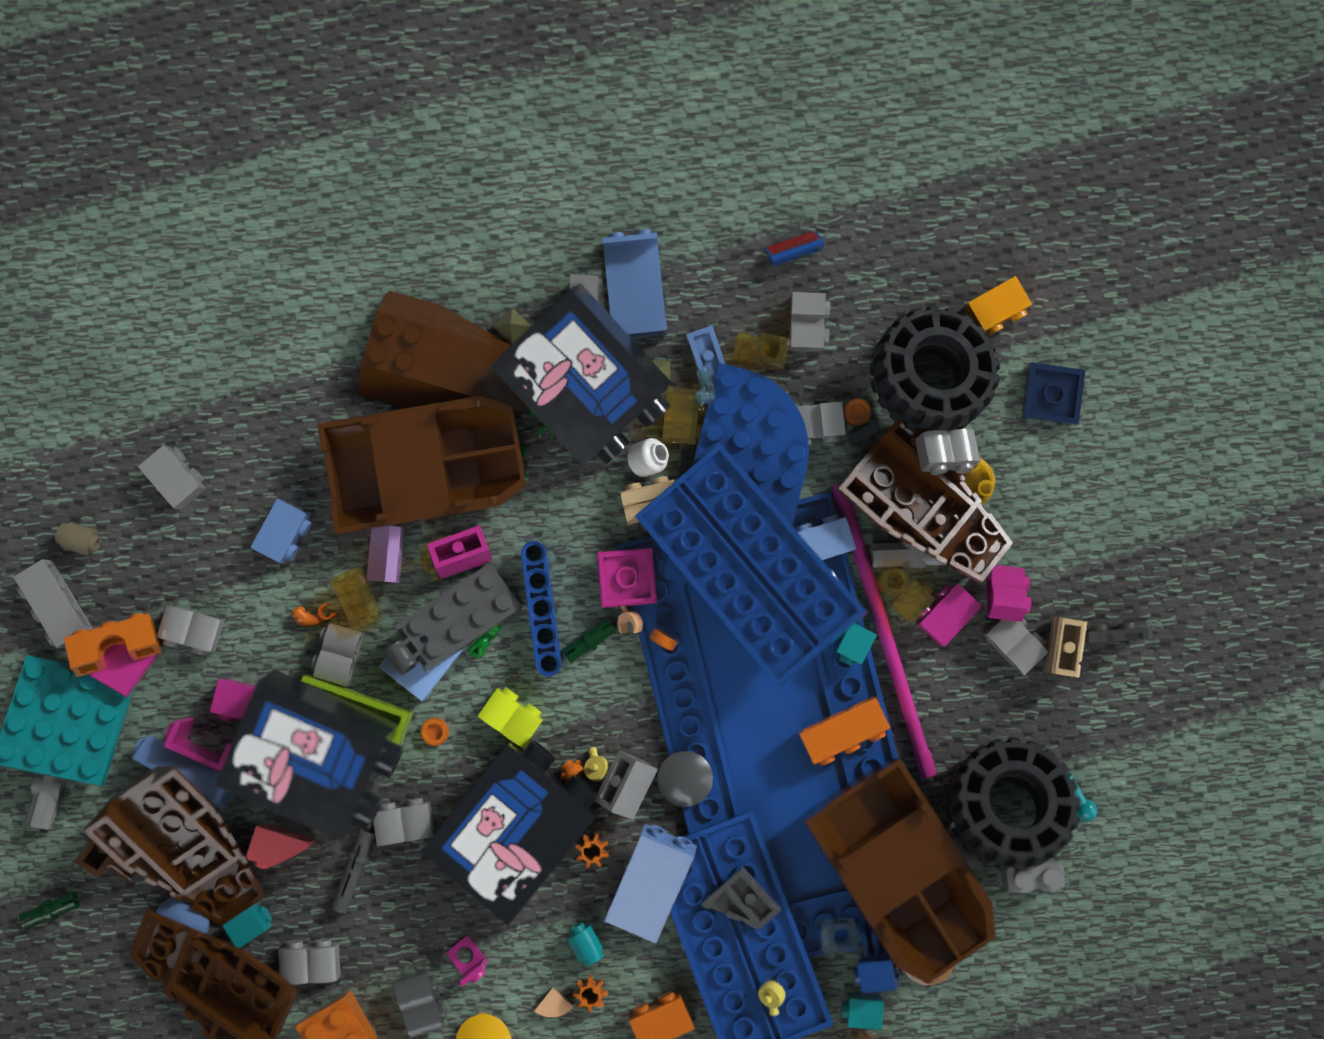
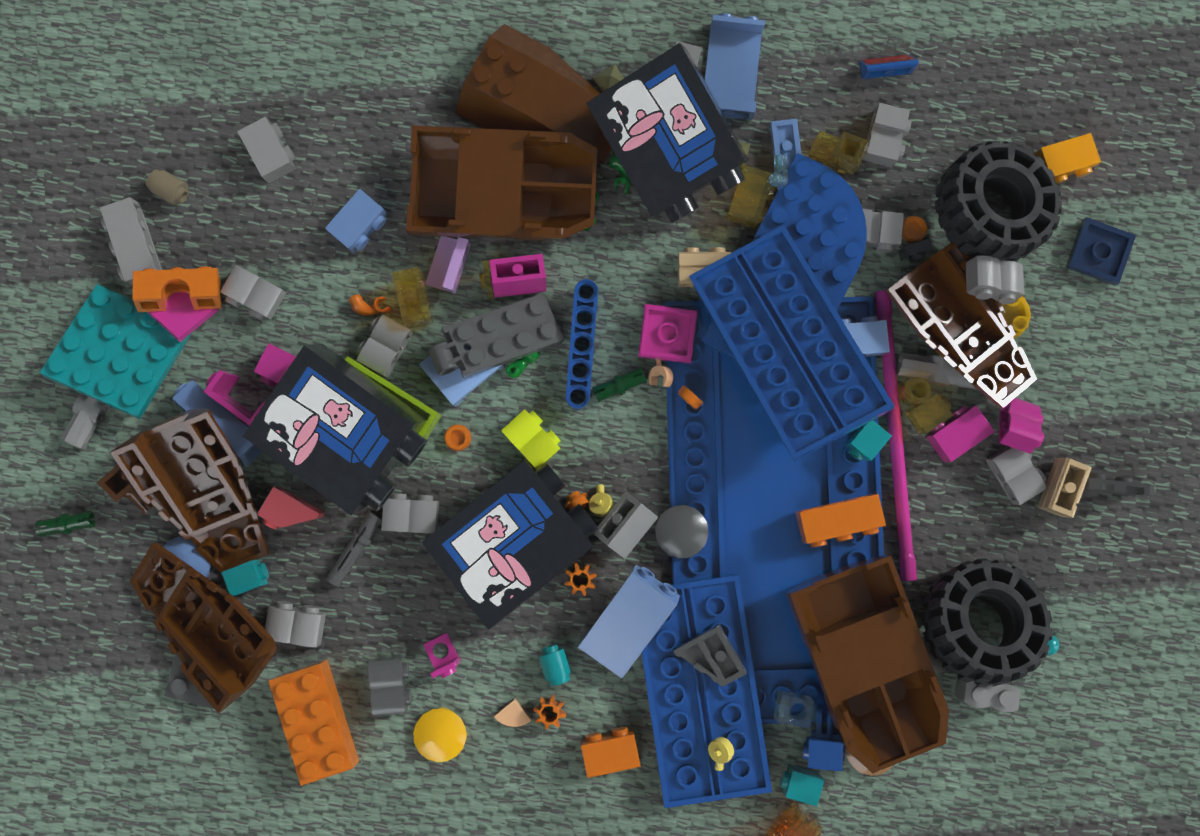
camera: 10 degrees right, 0 degrees up
(647, 457) = (711, 226): white head -> none

